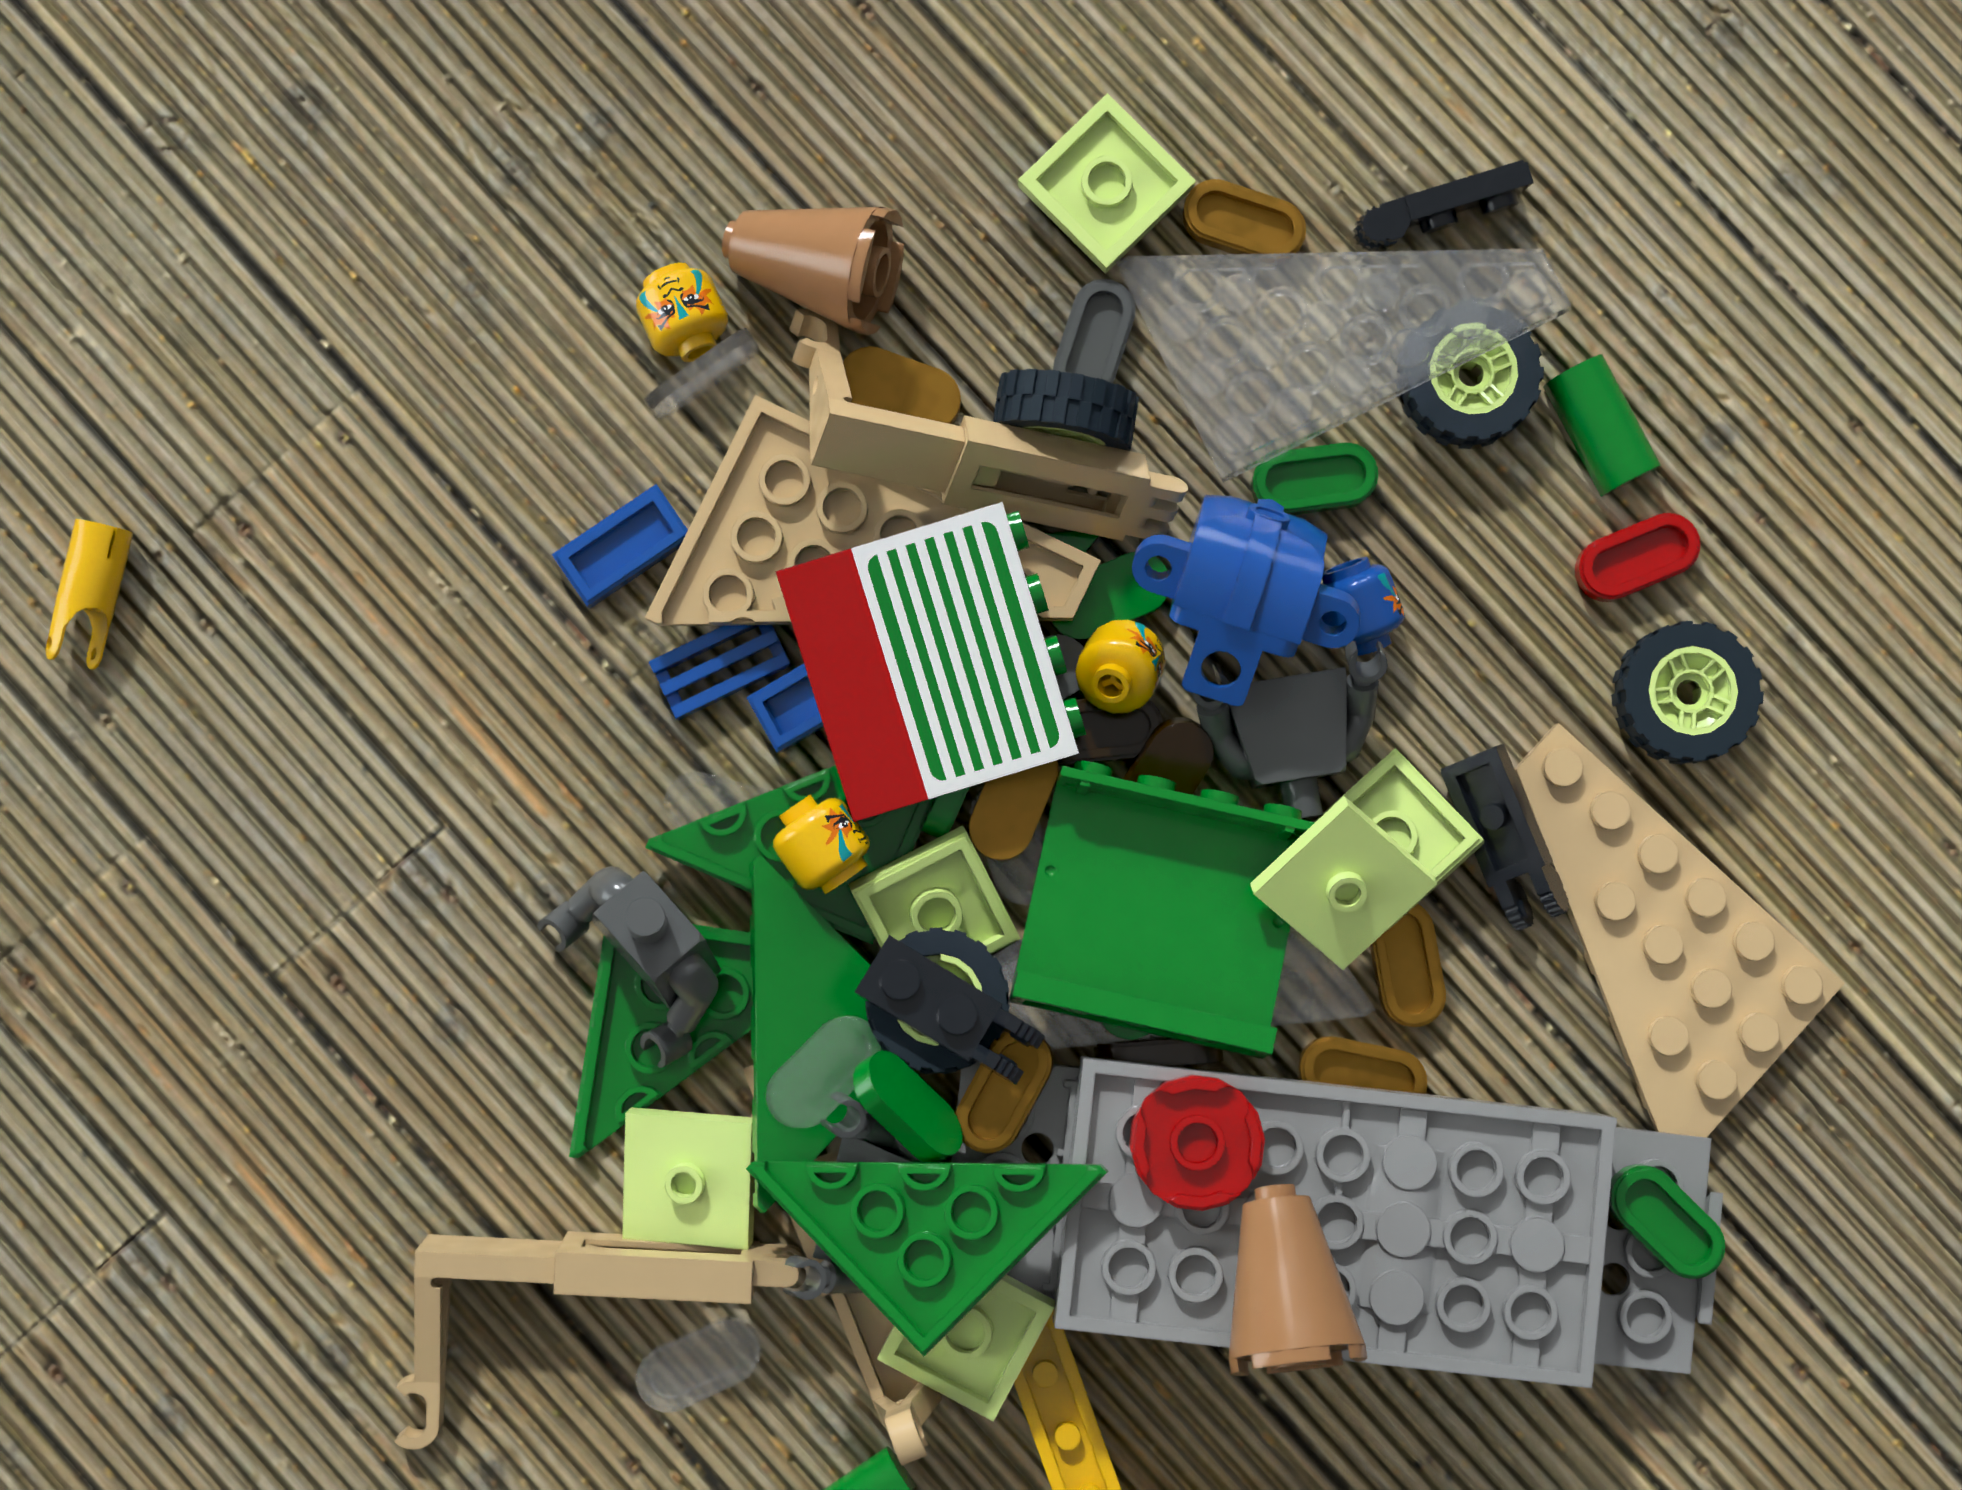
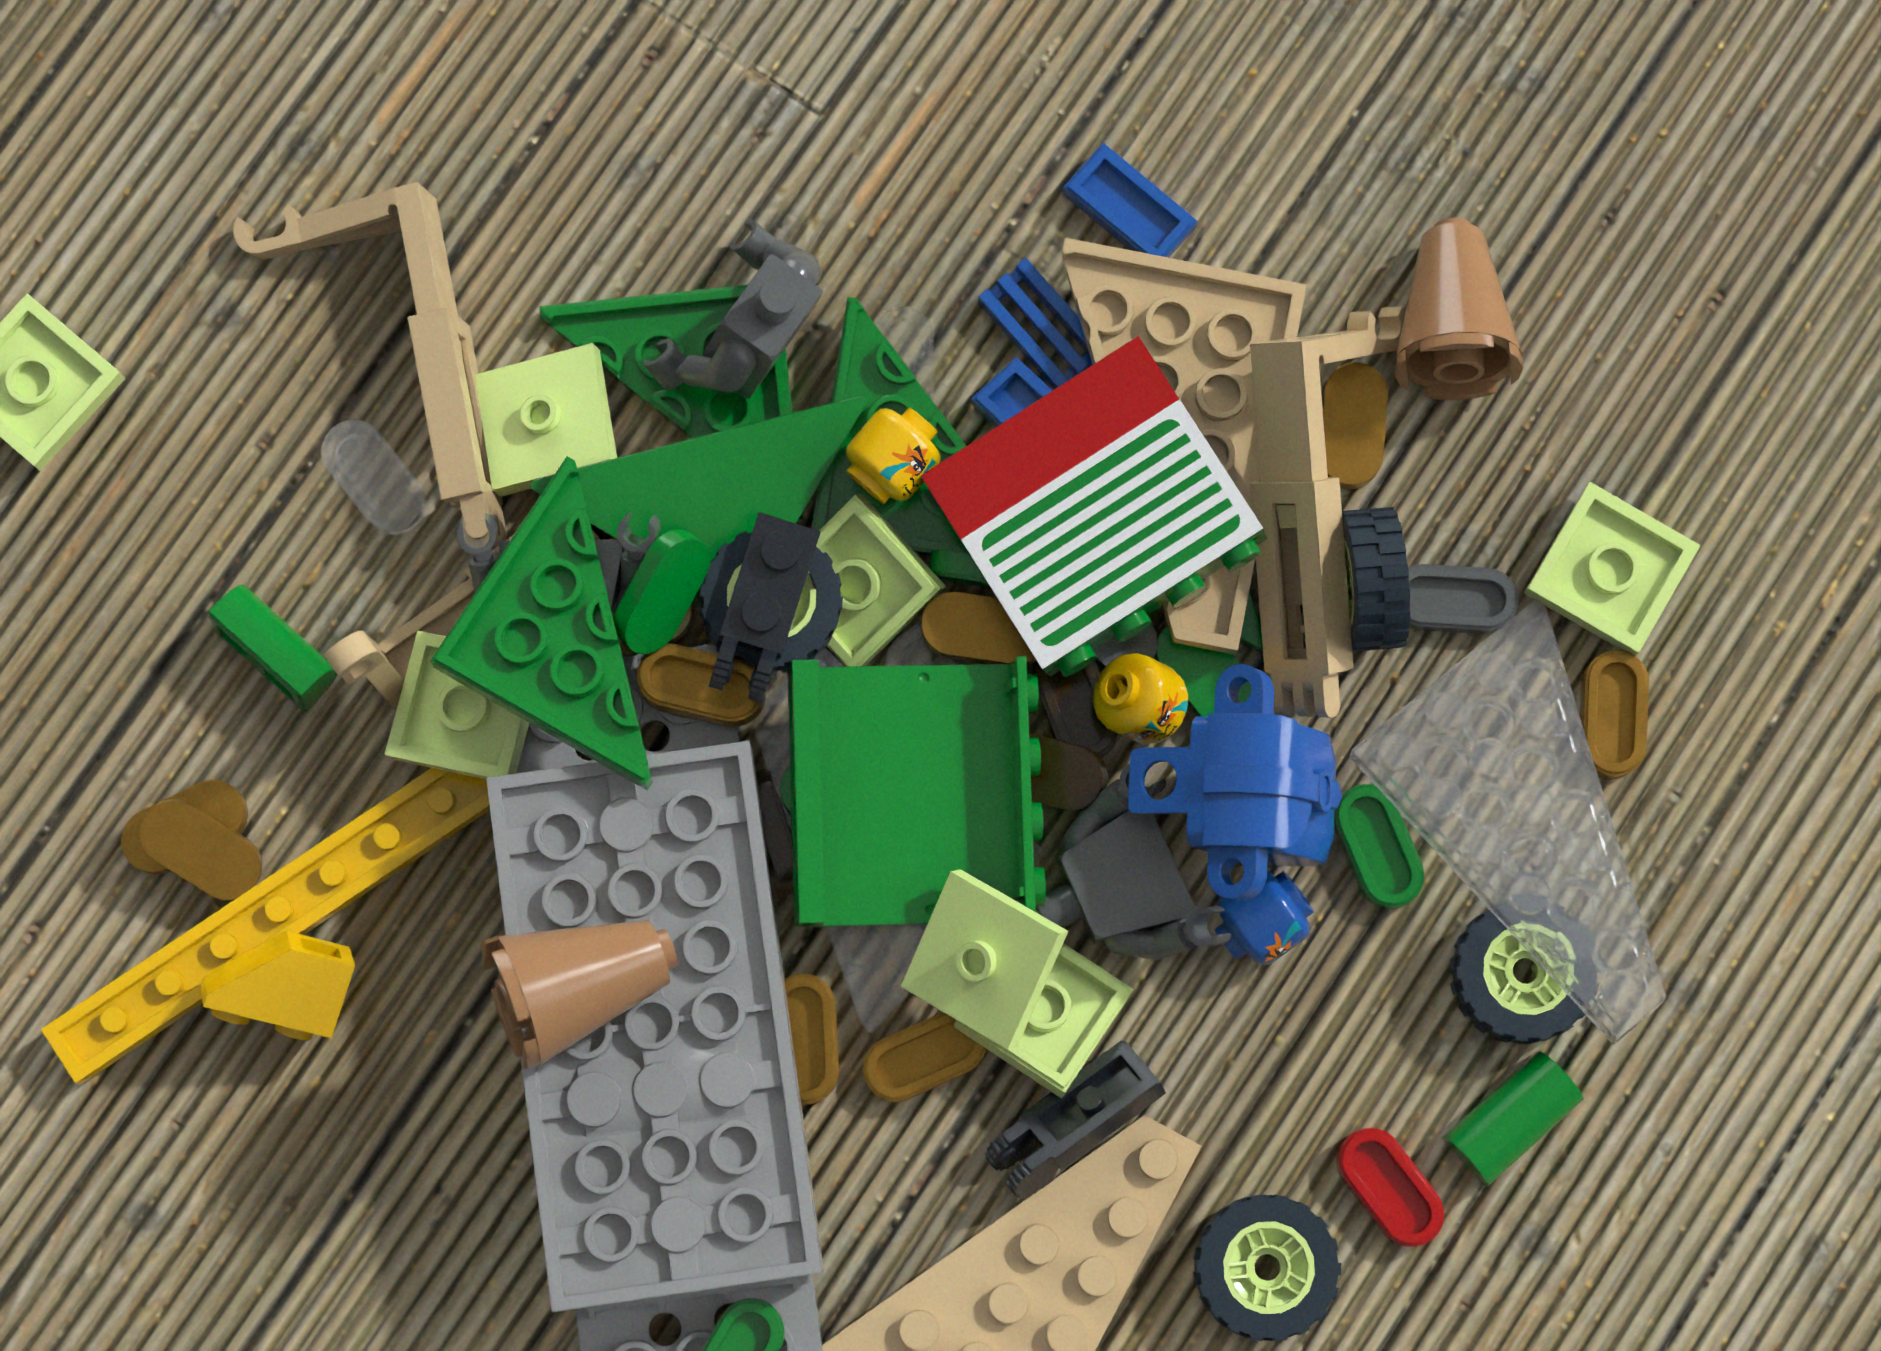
camera: 75 degrees right, 5 degrees down
(681, 311) = (1368, 200): yellow head -> none
(702, 374) = (1314, 234): clear tile -> none
(824, 1064) = (679, 504): clear tile -> none
(1196, 1142) = (695, 866): red tile -> none
(1437, 206) = (1684, 897): black hinge -> none

